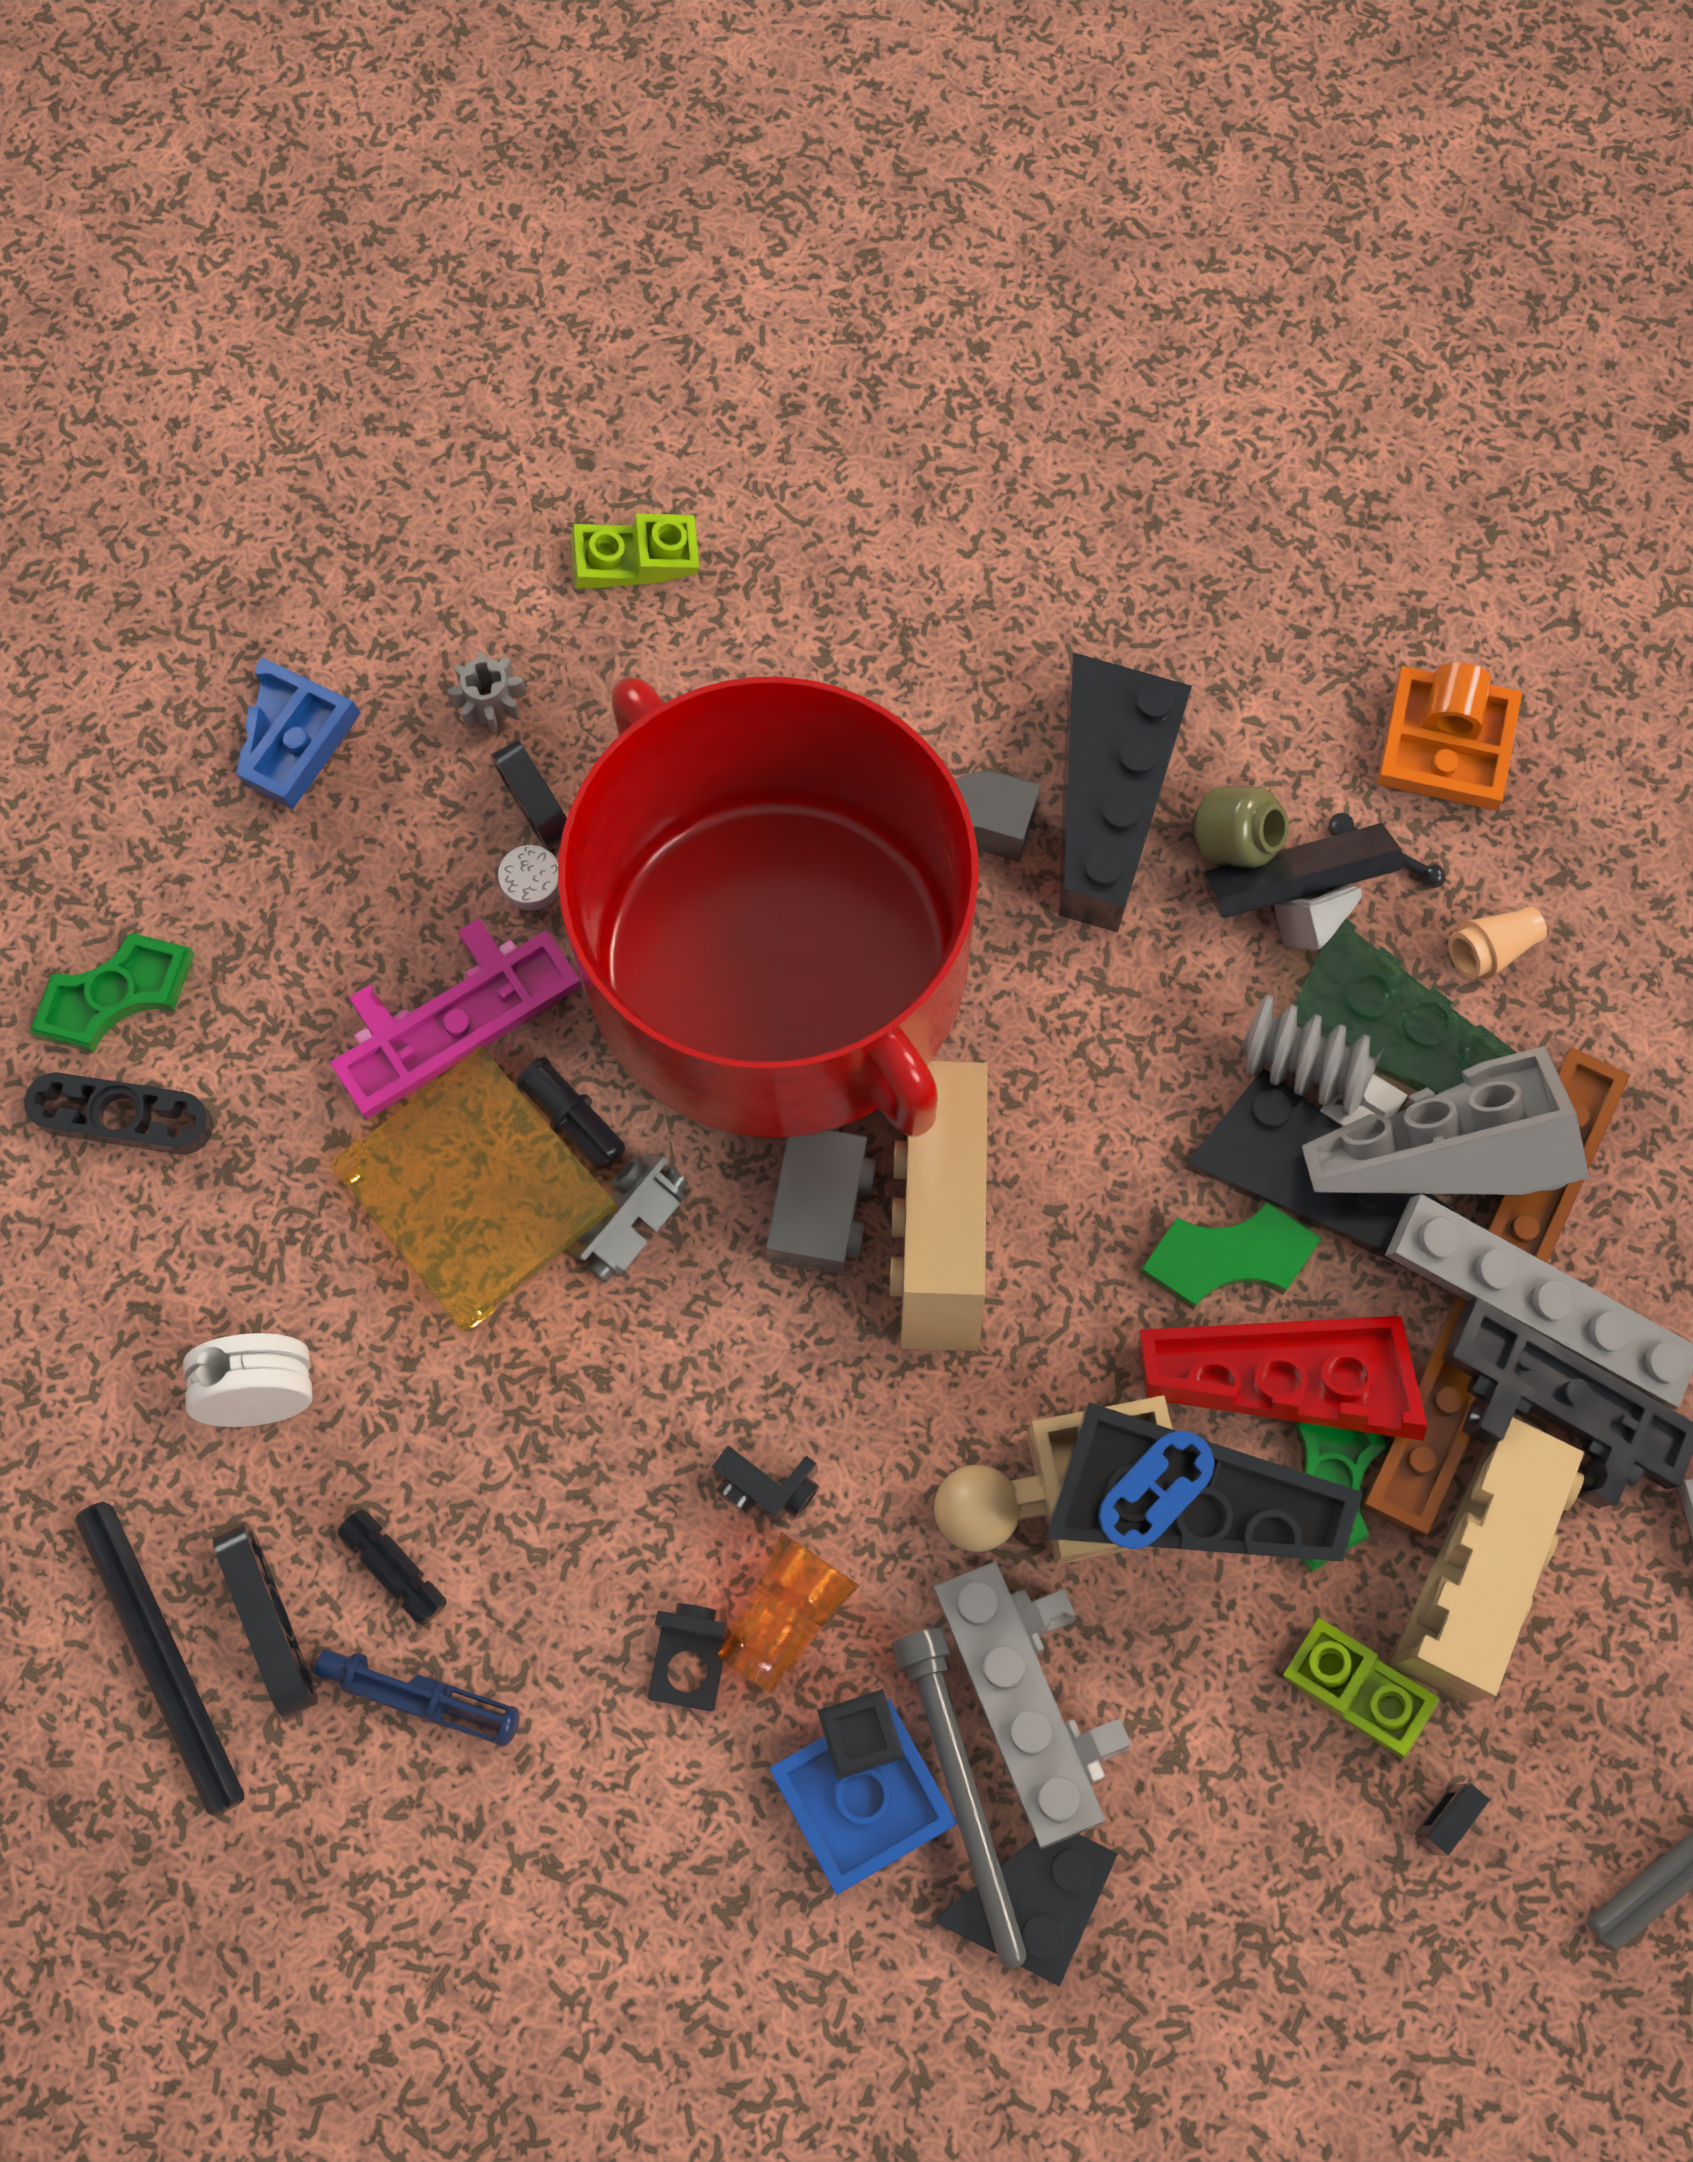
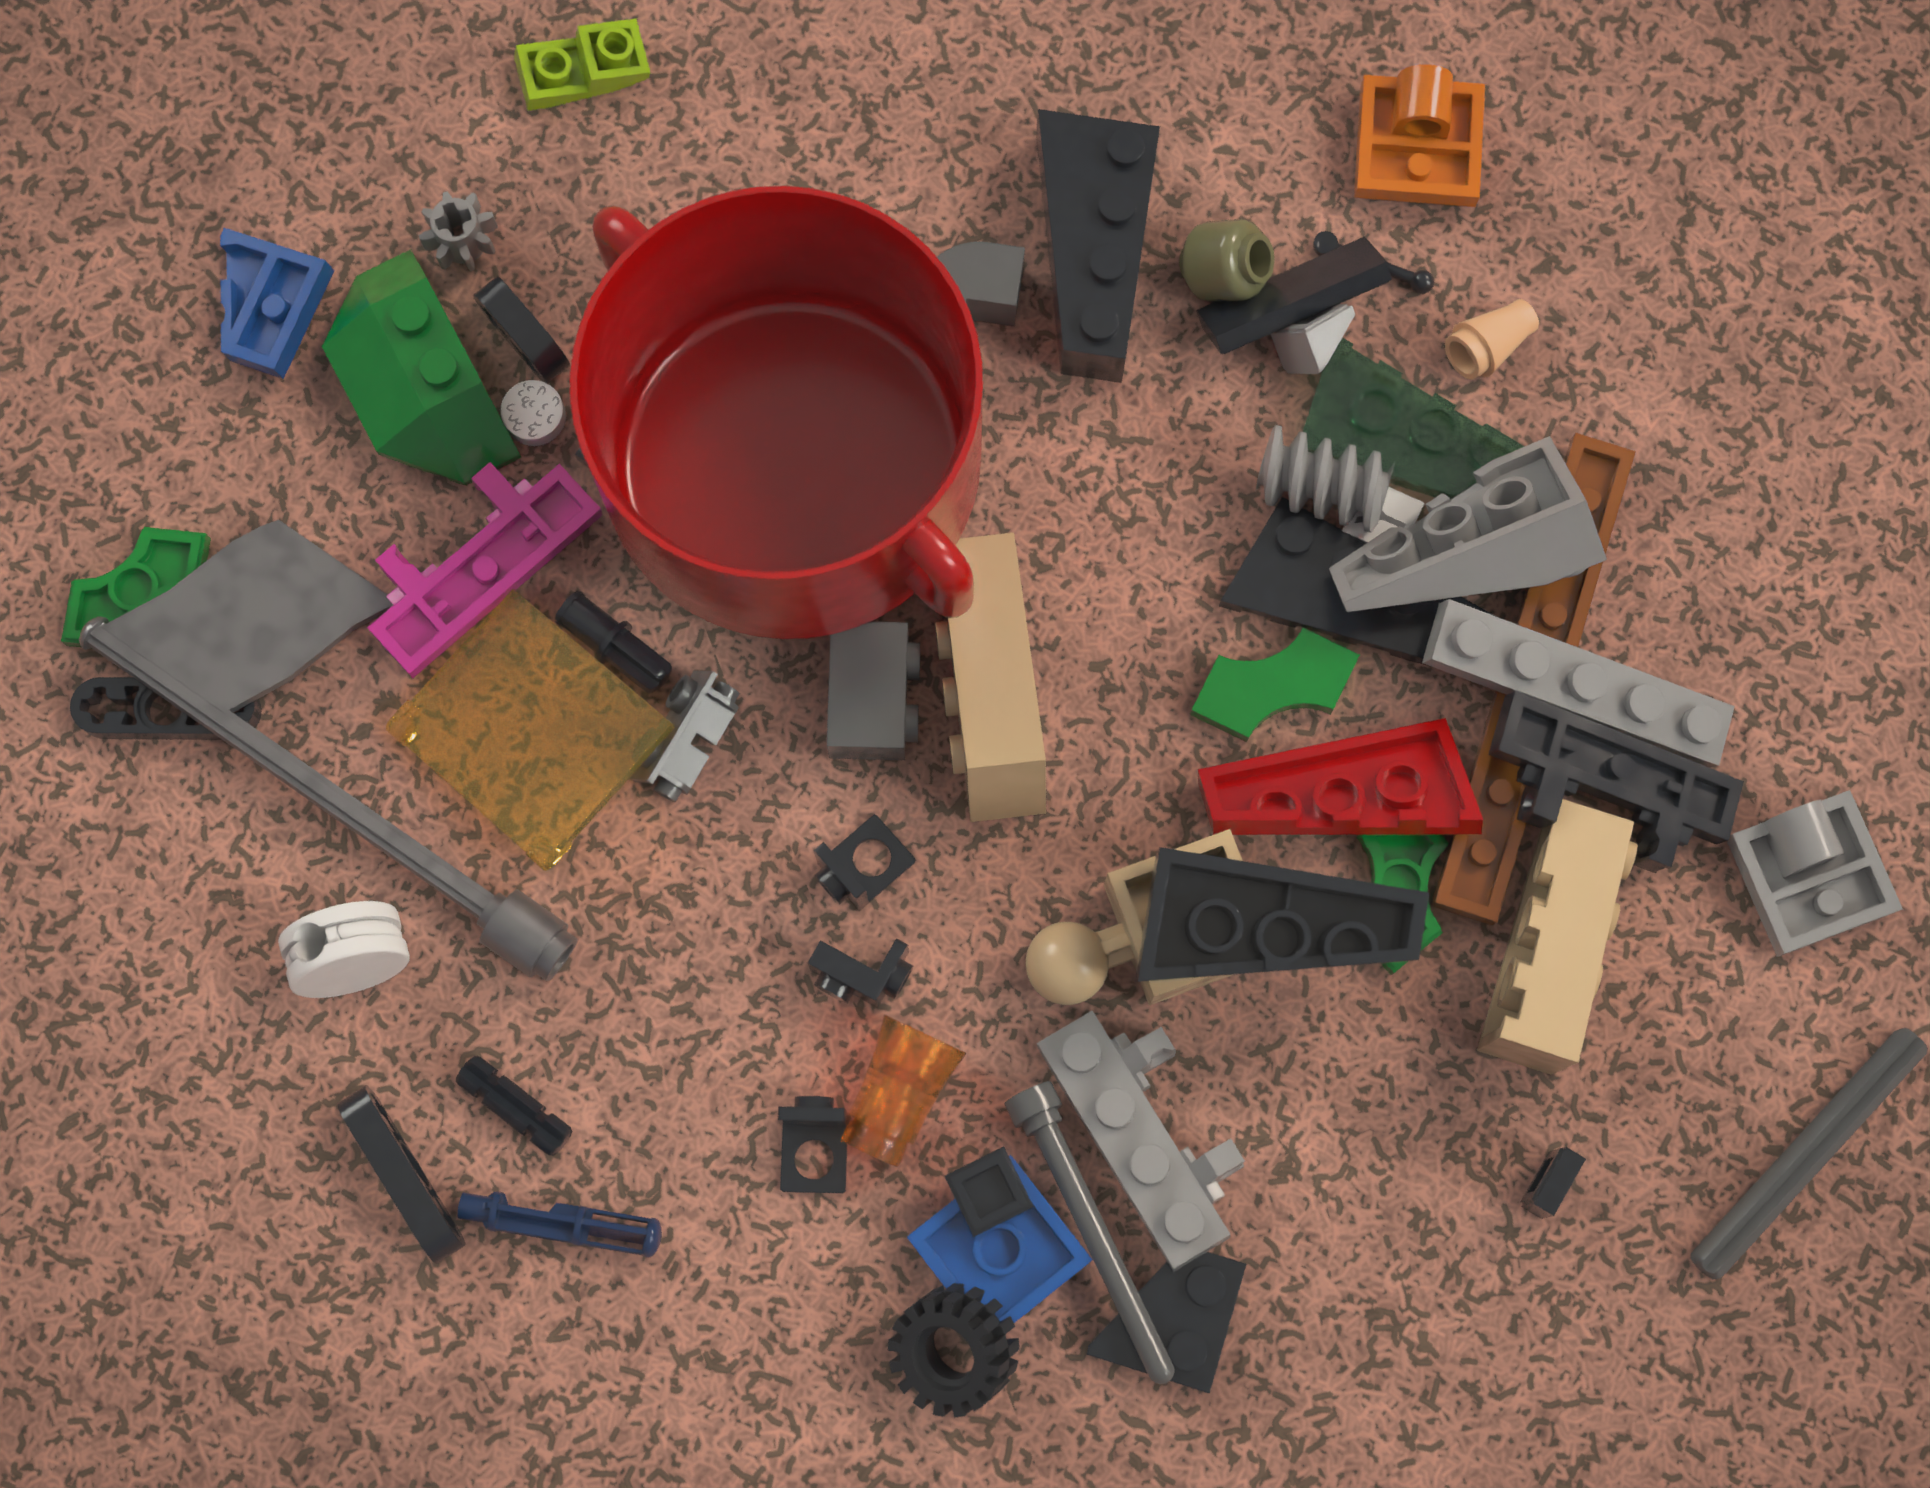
camera: 10 degrees left, 5 degrees up
(160, 1659) = (304, 1226): black axle -> none
(215, 1046) = (255, 624): none -> flat silver flag
(420, 826) = (414, 376): none -> green wedge
(759, 1378) = (842, 878): none -> black bracket
(770, 1917) = (928, 1371): none -> black tyre
(1168, 1502) = (1248, 930): blue beam -> none
(1361, 1688) = (1453, 1075): lime slope -> none

